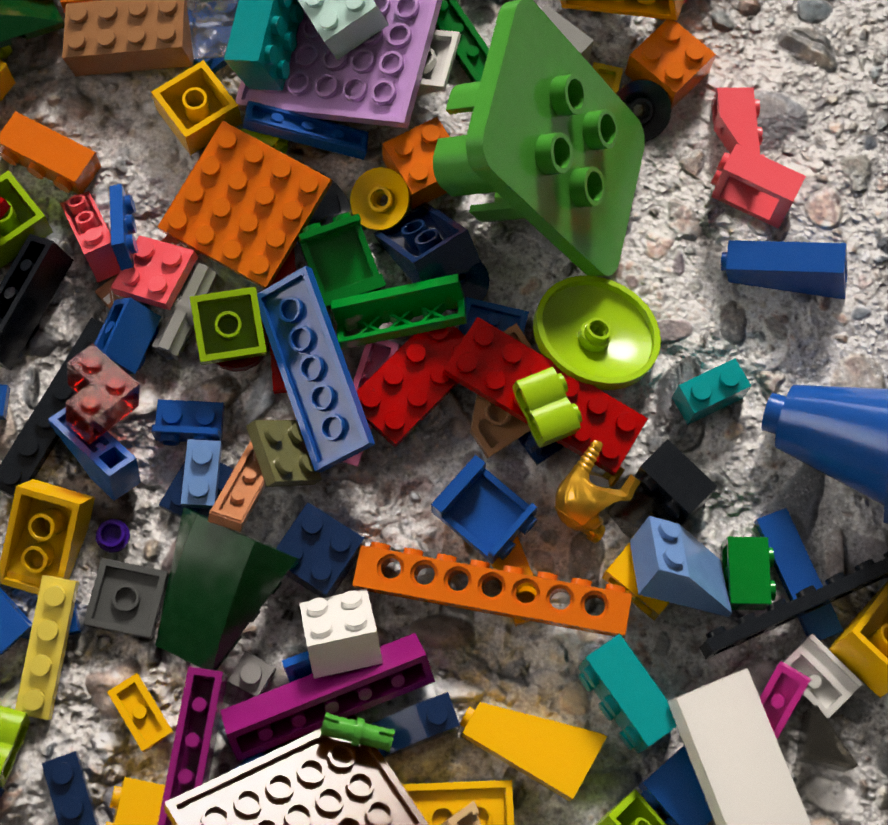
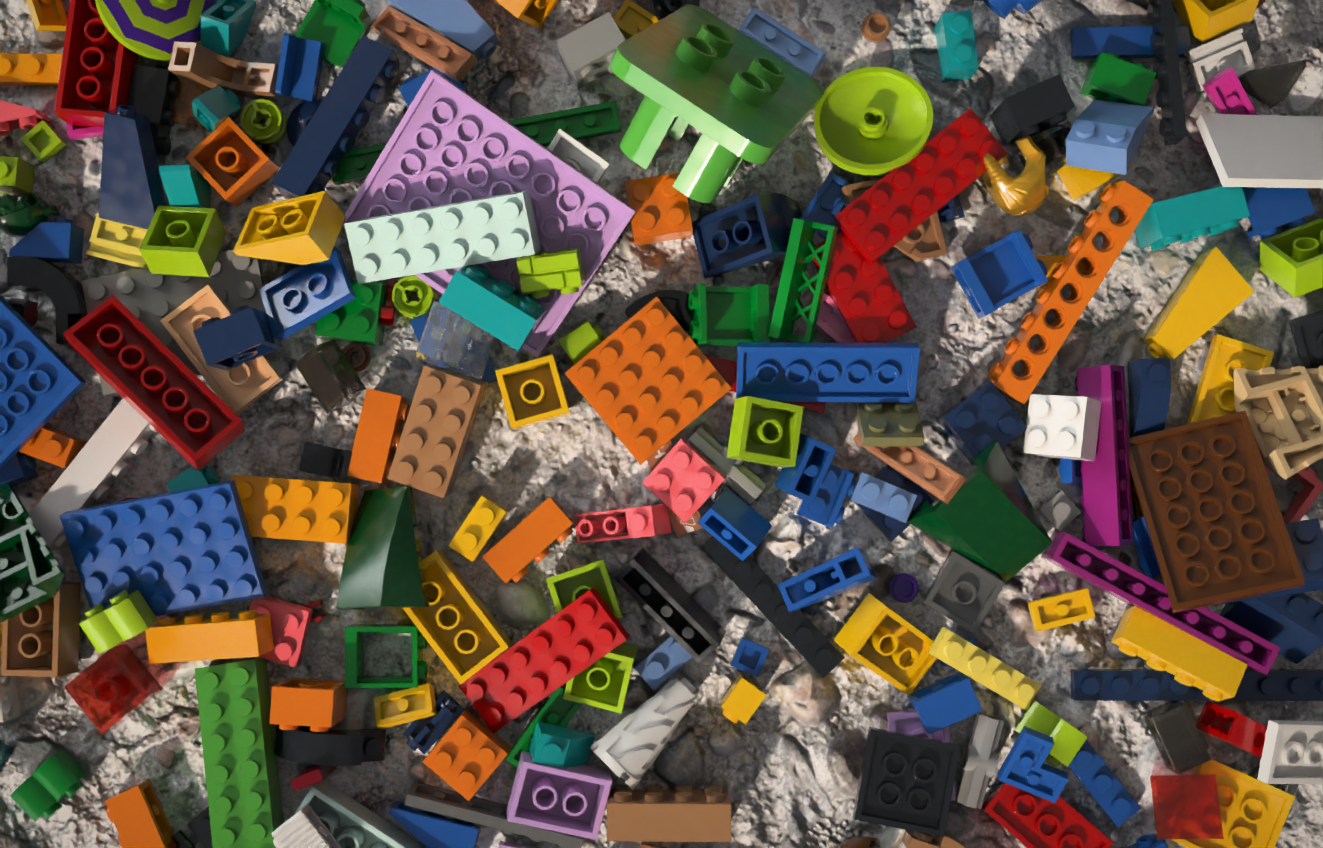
camera: 70 degrees left, 15 degrees up
(46, 103) = (479, 528): none -> yellow brick
(102, 395) = (790, 554): clear red brick -> none
(122, 226) = (634, 493): blue plate -> none
(206, 385) = (810, 469): none -> blue brick
(305, 130) = (591, 304): blue tile -> none
(317, 71) = (551, 271): none -> lime brick
(357, 732) = (1148, 441): bright green pin -> none
(367, 195) = (683, 273): yellow dish -> none
(547, 407) = (944, 187): lime brick -> none
(643, 228) = (782, 42): none -> light blue tile
(698, 310) = (875, 27): none -> medium nougat plate

